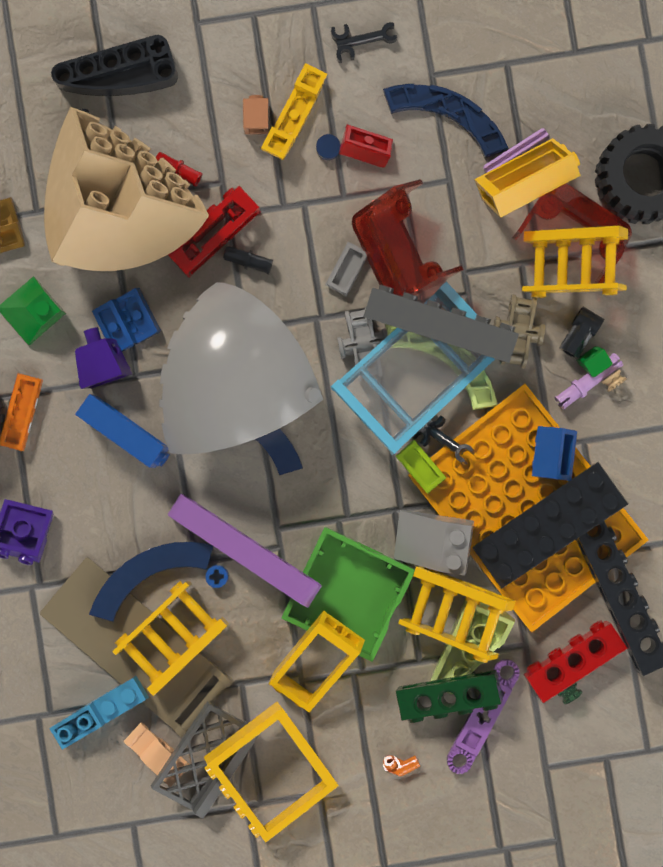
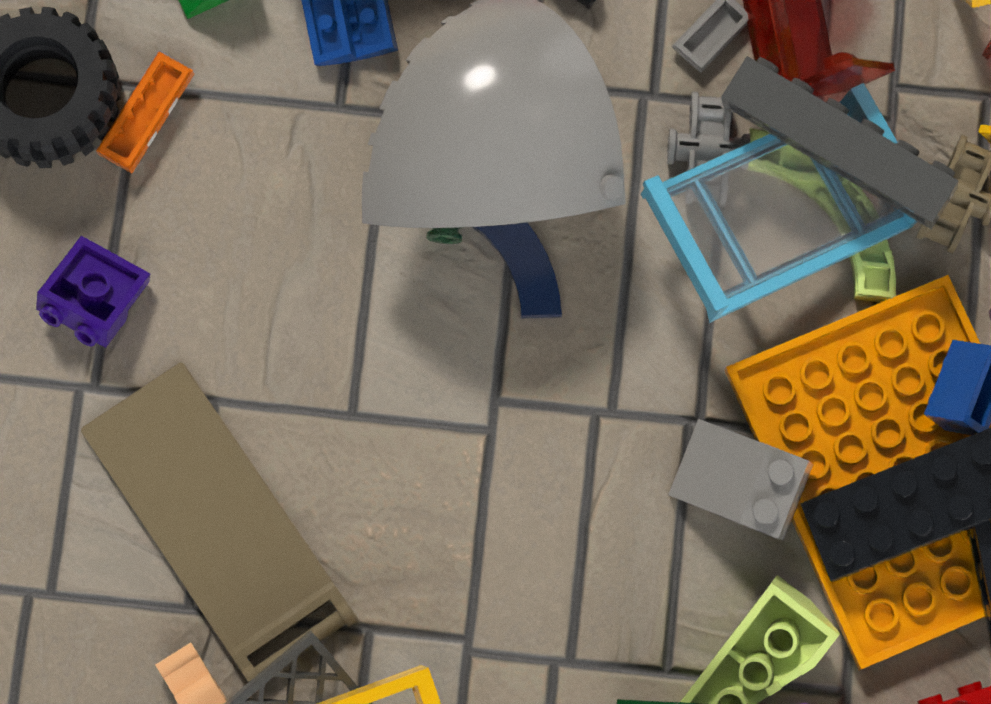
camera: 10 degrees right, 10 degrees down
(99, 712) = (130, 607): dark azure slope -> none
(100, 361) = (291, 66): dark purple torso -> none
(123, 431) = (298, 178): blue window -> none
(142, 567) = (269, 399): dark blue tile -> none
(175, 660) = (277, 557): yellow fence -> none
(211, 582) = (385, 456): blue bush -> none
(244, 550) = (437, 410): medium lavender beam -> none
(336, 634) = (550, 575): yellow window -> none
(356, 589) = (581, 526): bright green tile -> none
(420, 466) = (749, 356): lime tile -> none
(430, 429) = (783, 307): black bar -> none
(474, 595) = (783, 574): yellow fence -> none

